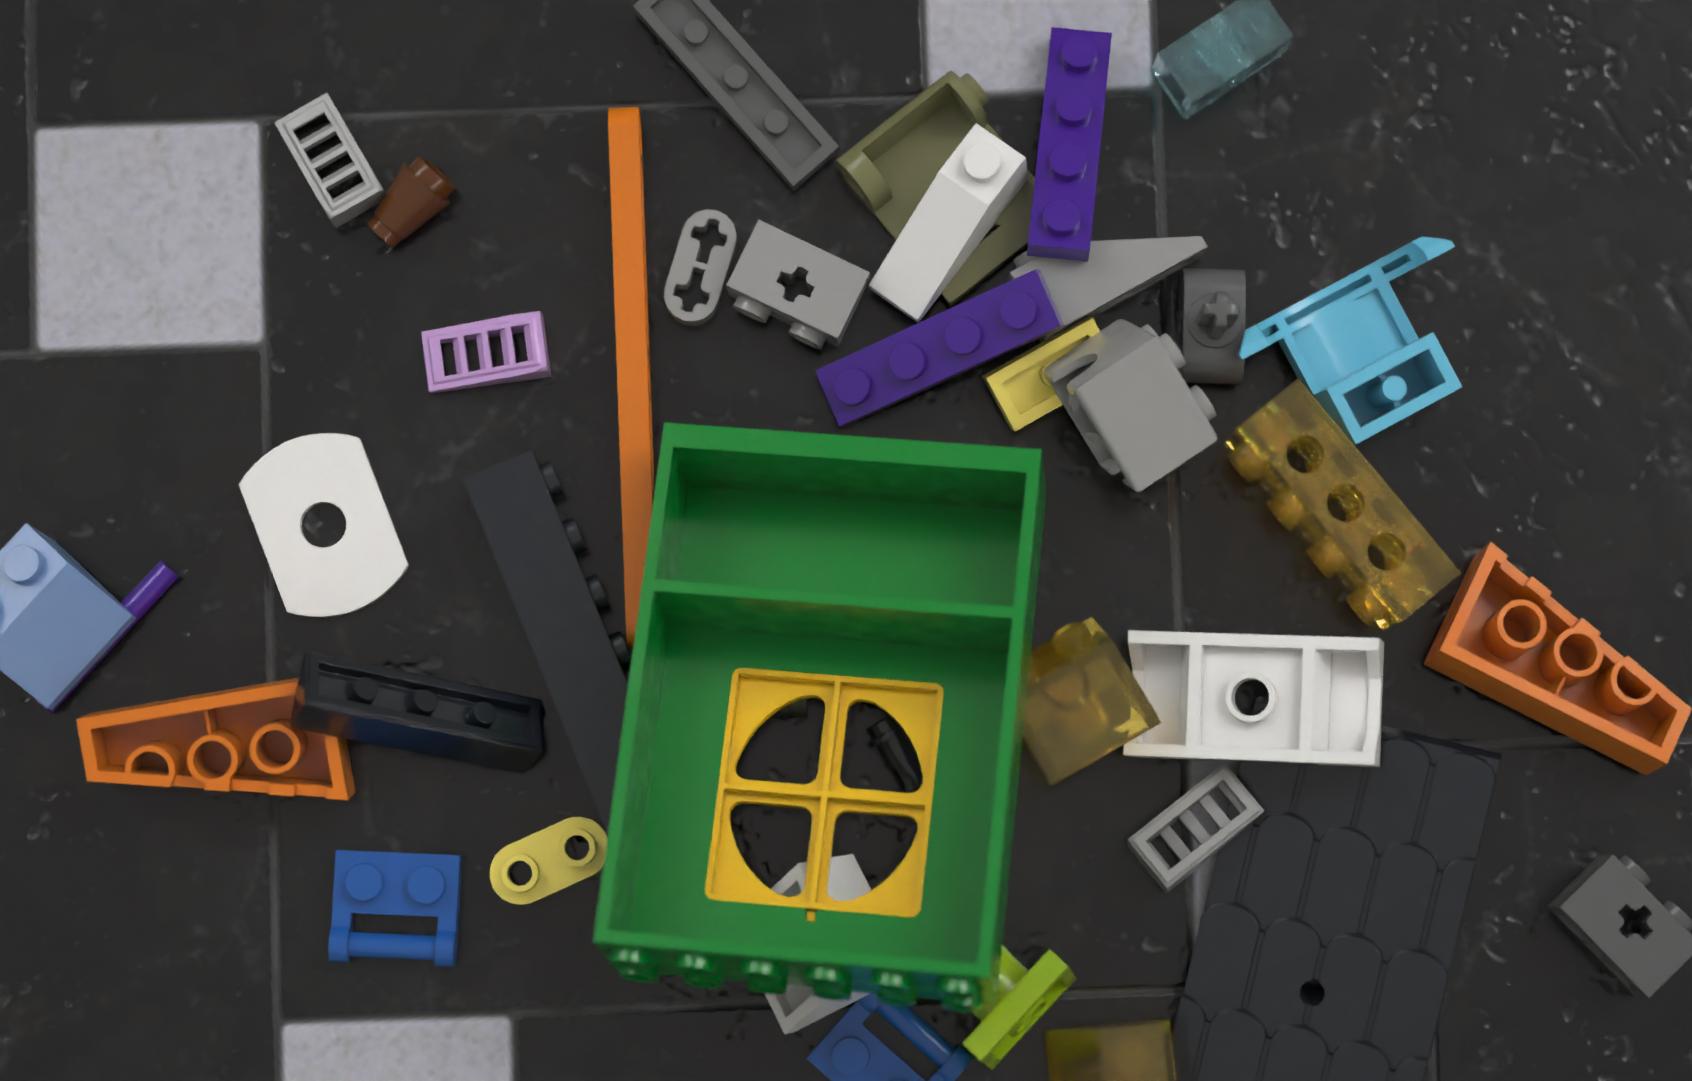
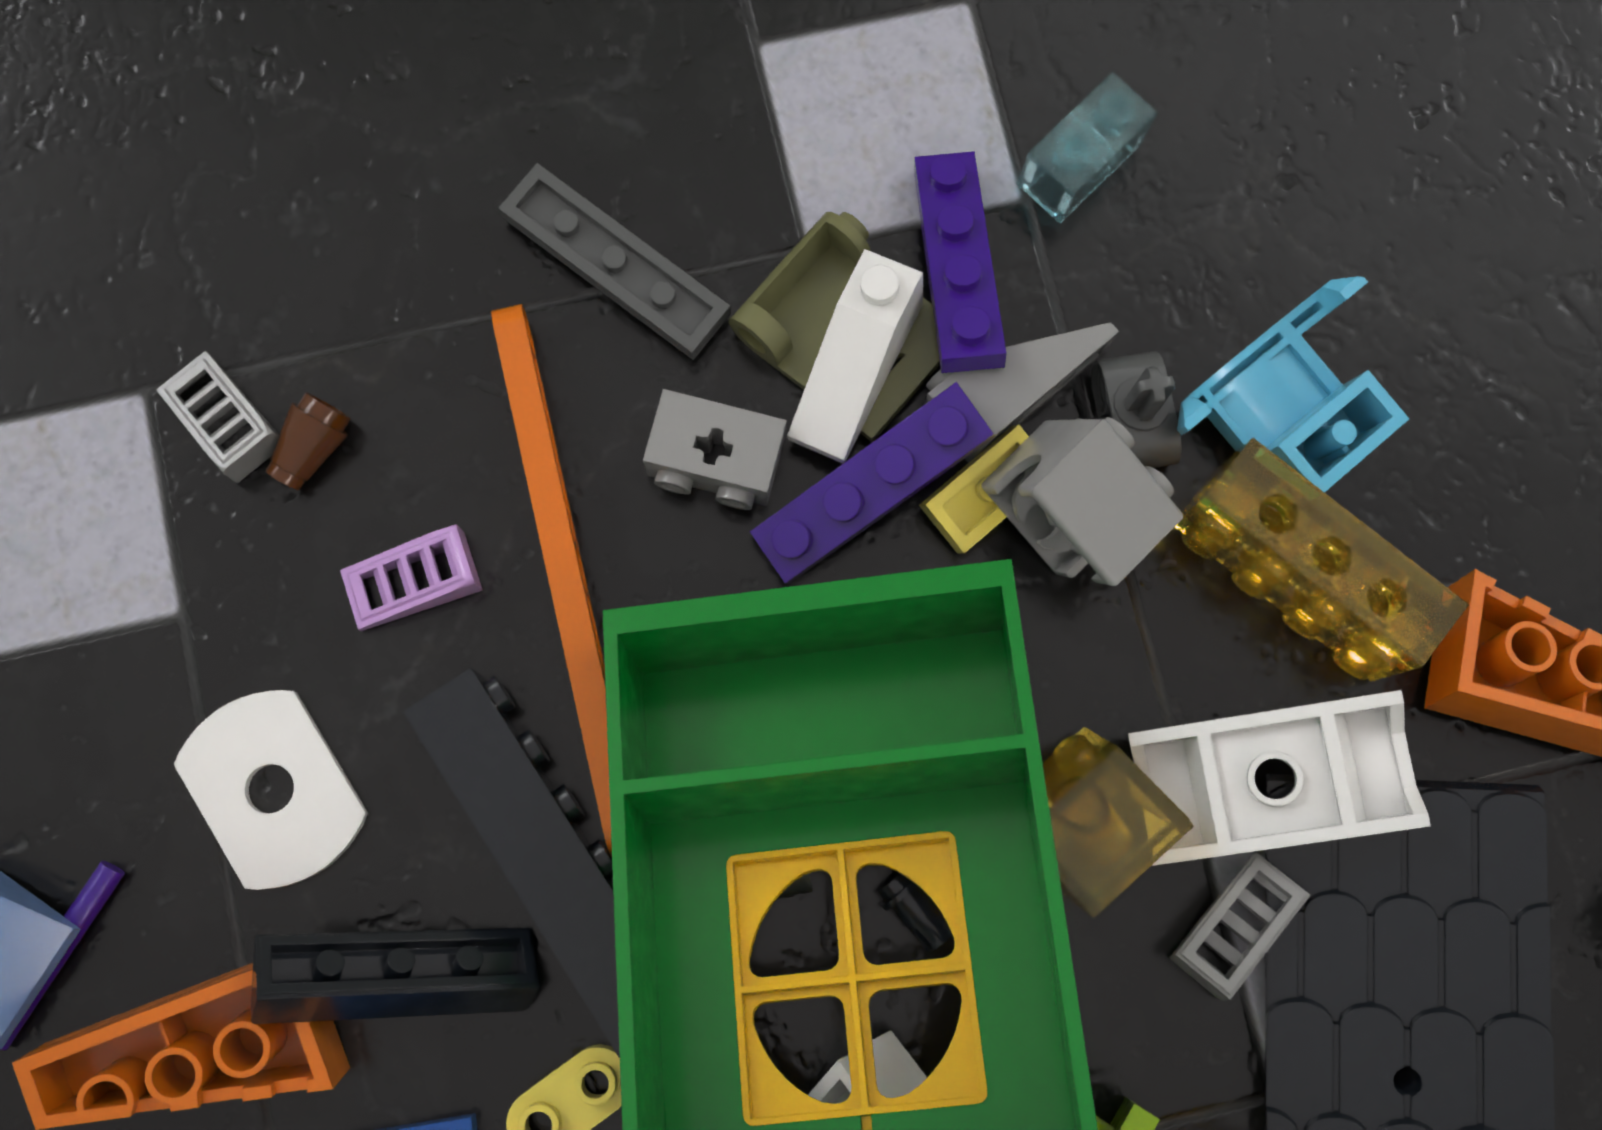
camera: 15 degrees left, 5 degrees down
(686, 263) = (599, 451): light grey beam -> none

